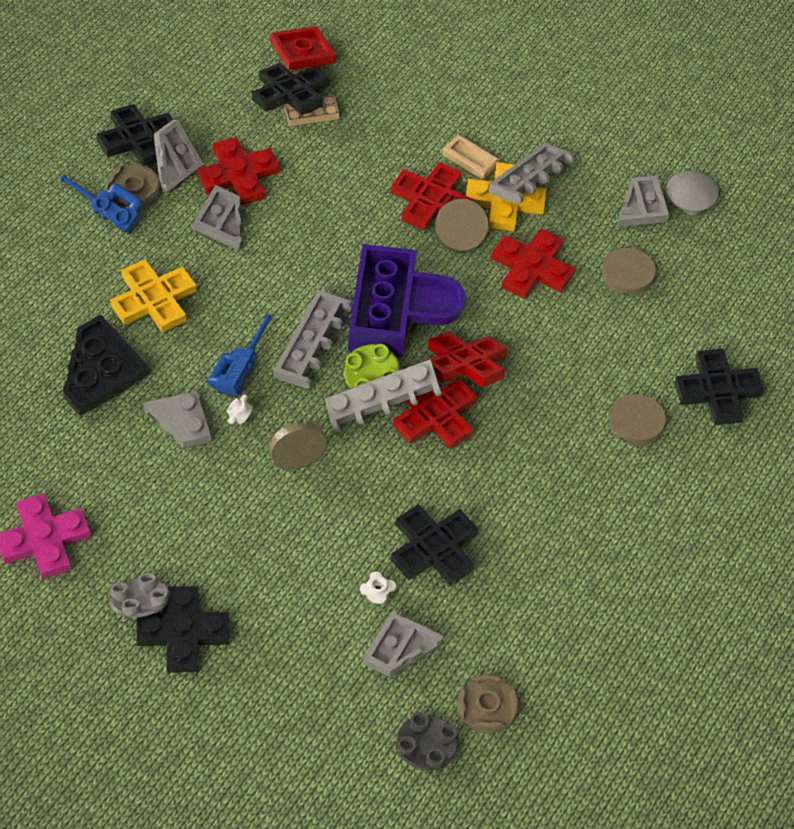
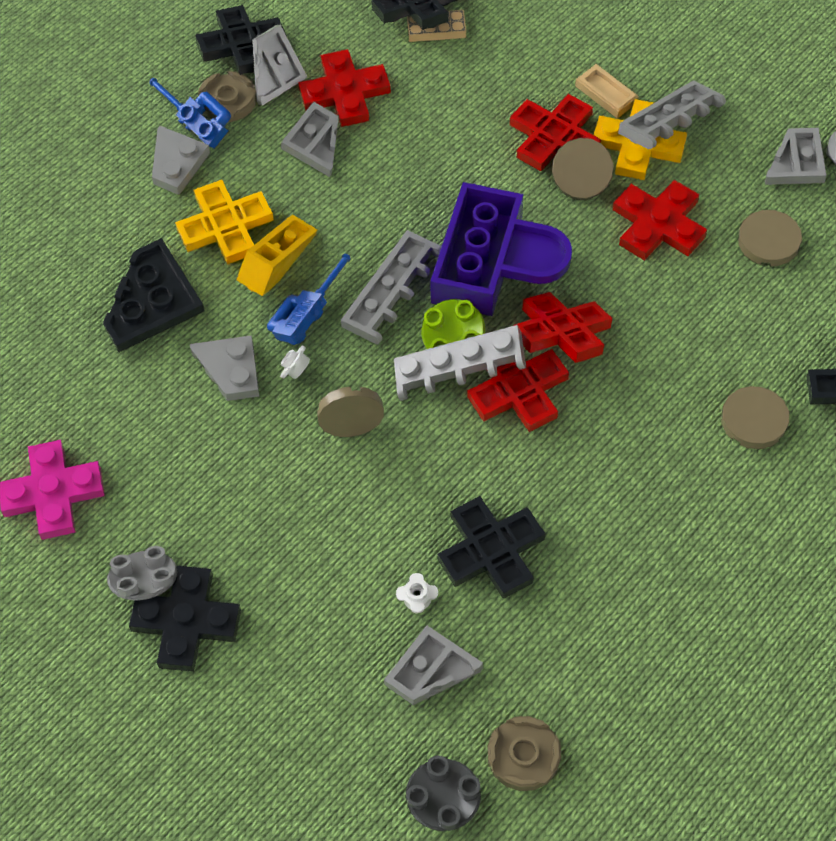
camera: 15 degrees right, 5 degrees up
(98, 245) = (176, 159): none -> light grey wing
(205, 320) = (275, 254): none -> yellow slope

